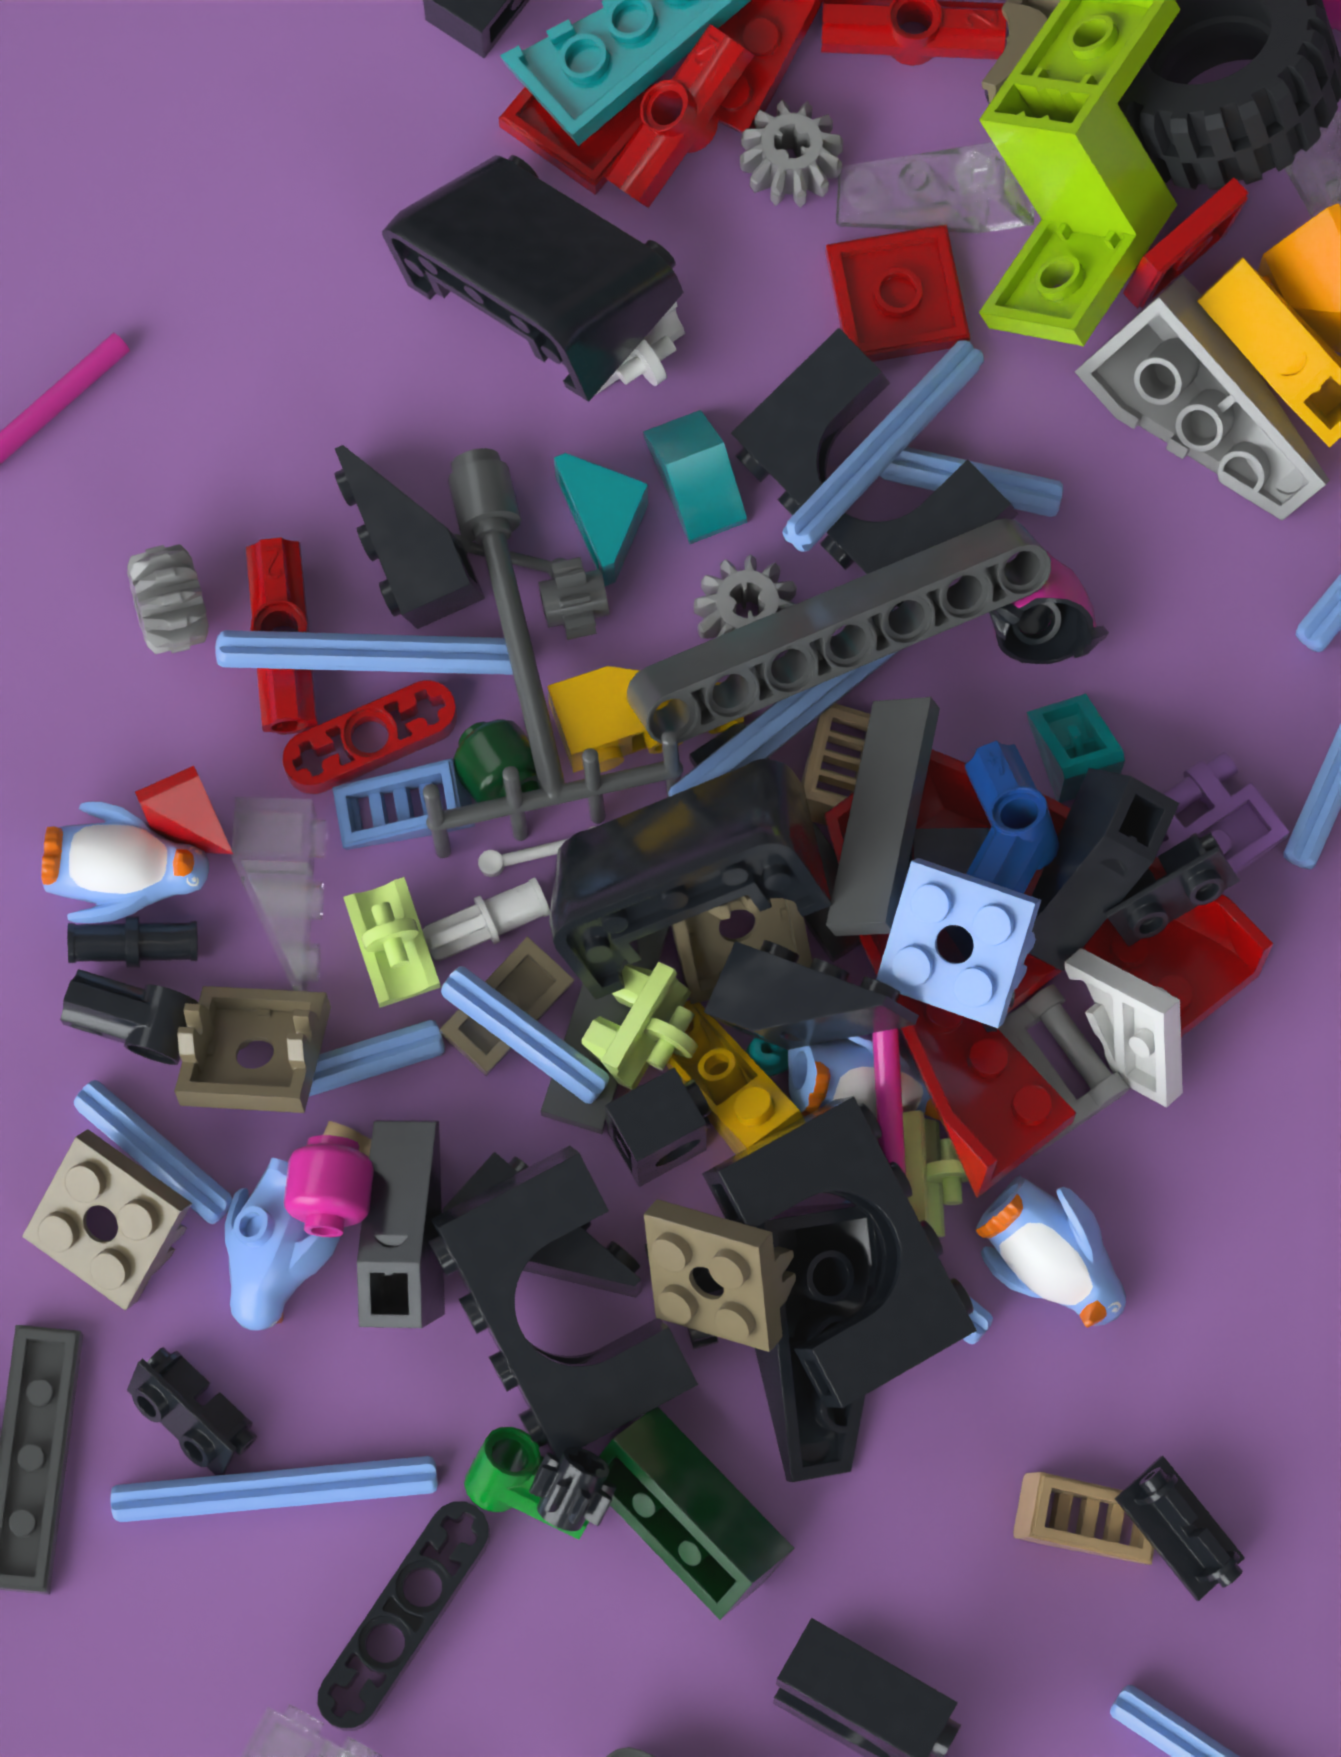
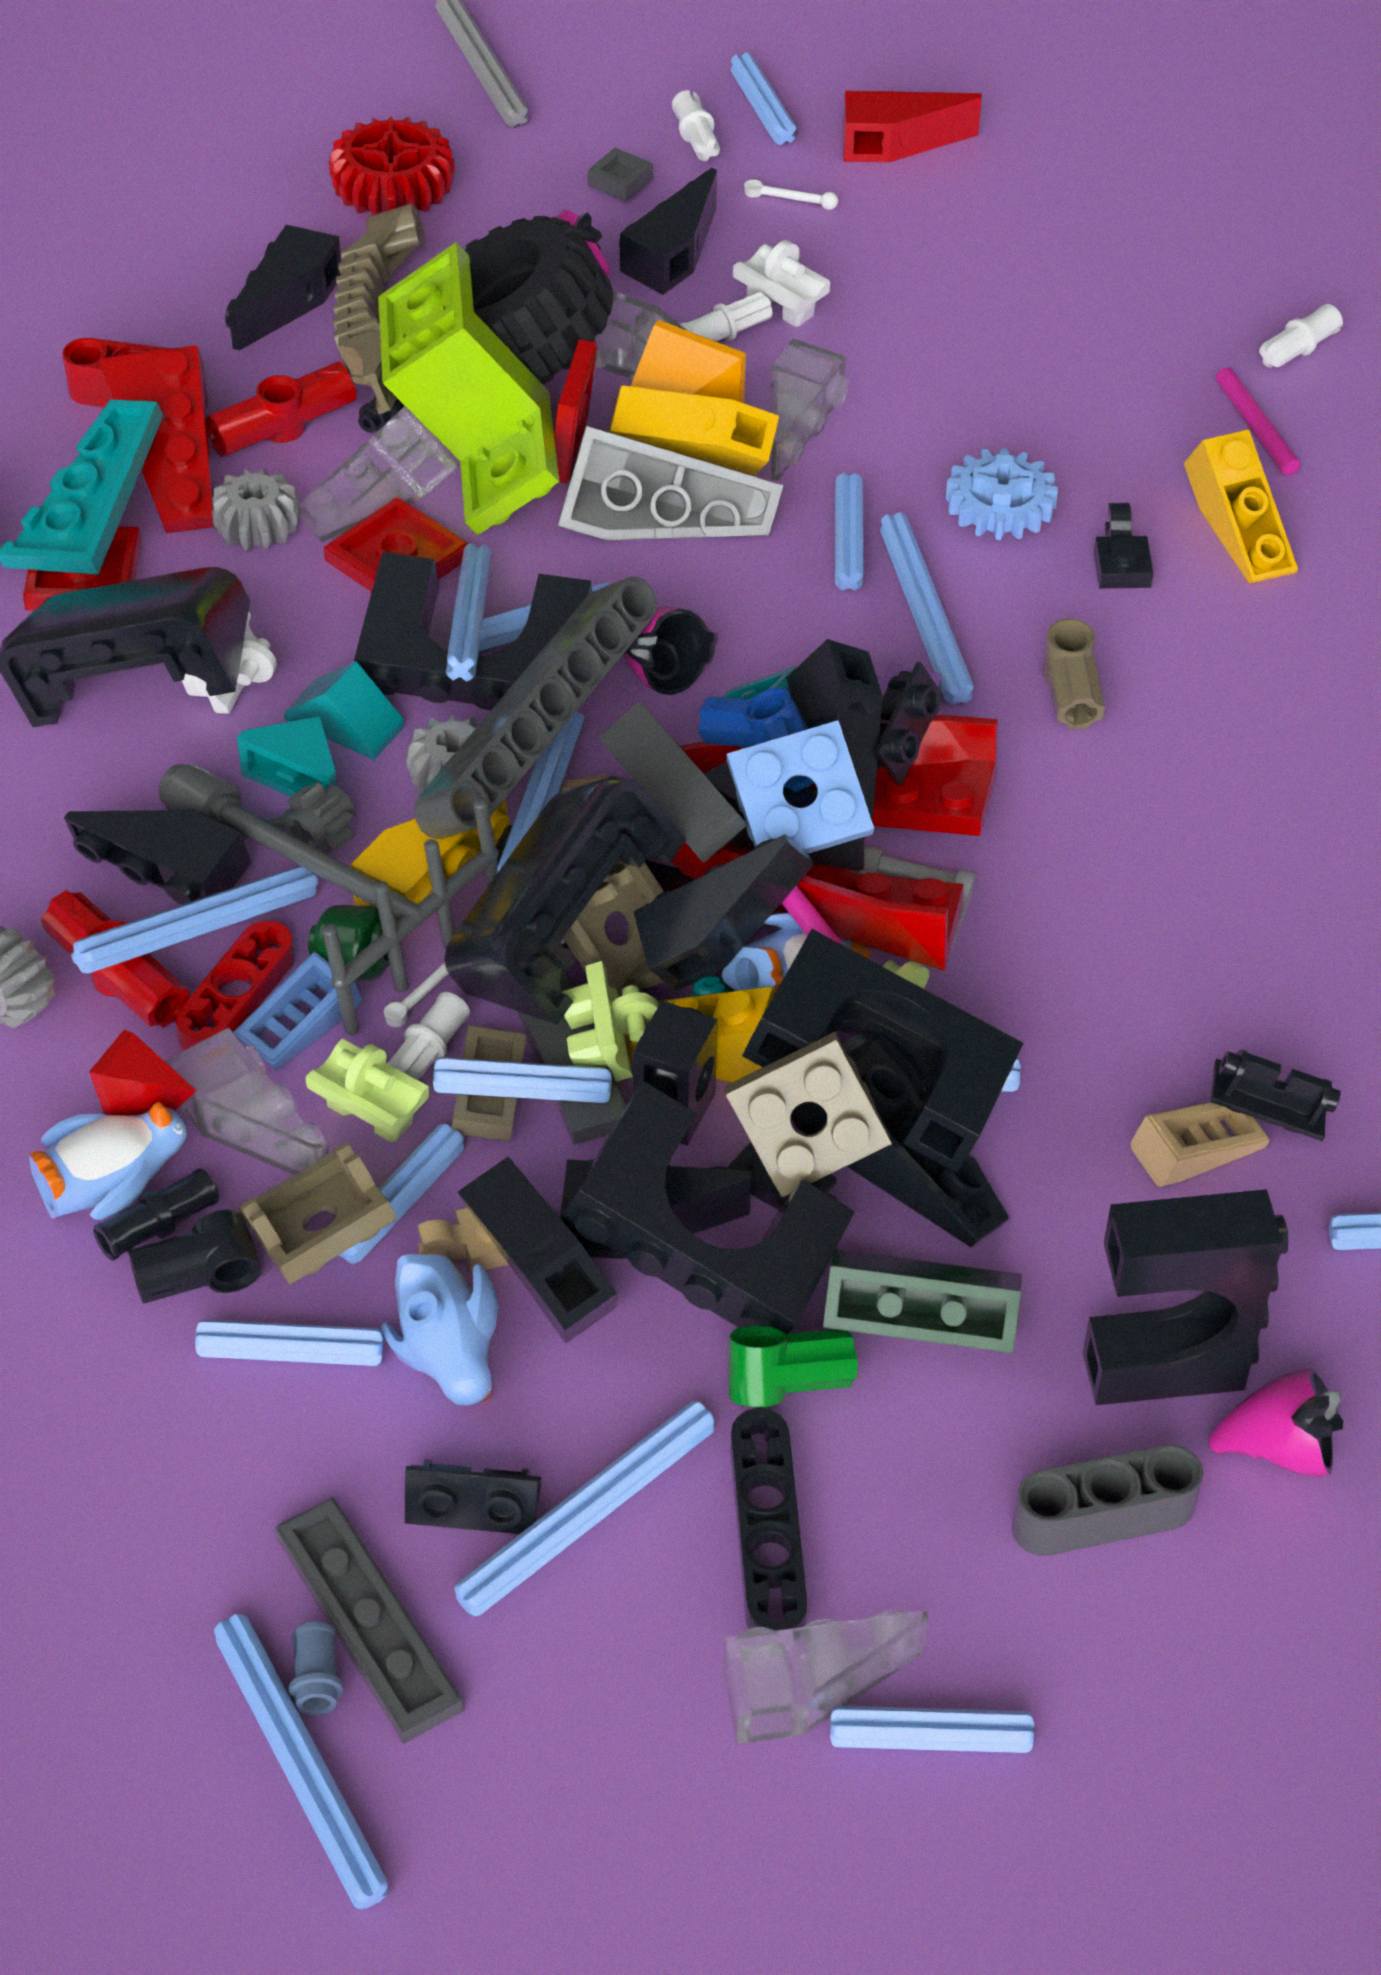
camera: 40 degrees left, 25 degrees down
(145, 1212) = (326, 1363): piece -> none
(328, 1185) = (462, 1236): dark pink head -> none
(573, 1489) = (830, 1318): black gear -> none
(679, 116) = (159, 509): red piece -> none
(1051, 1251) = (1023, 983): animal -> none
(1136, 1026) = (951, 818): white wing -> none

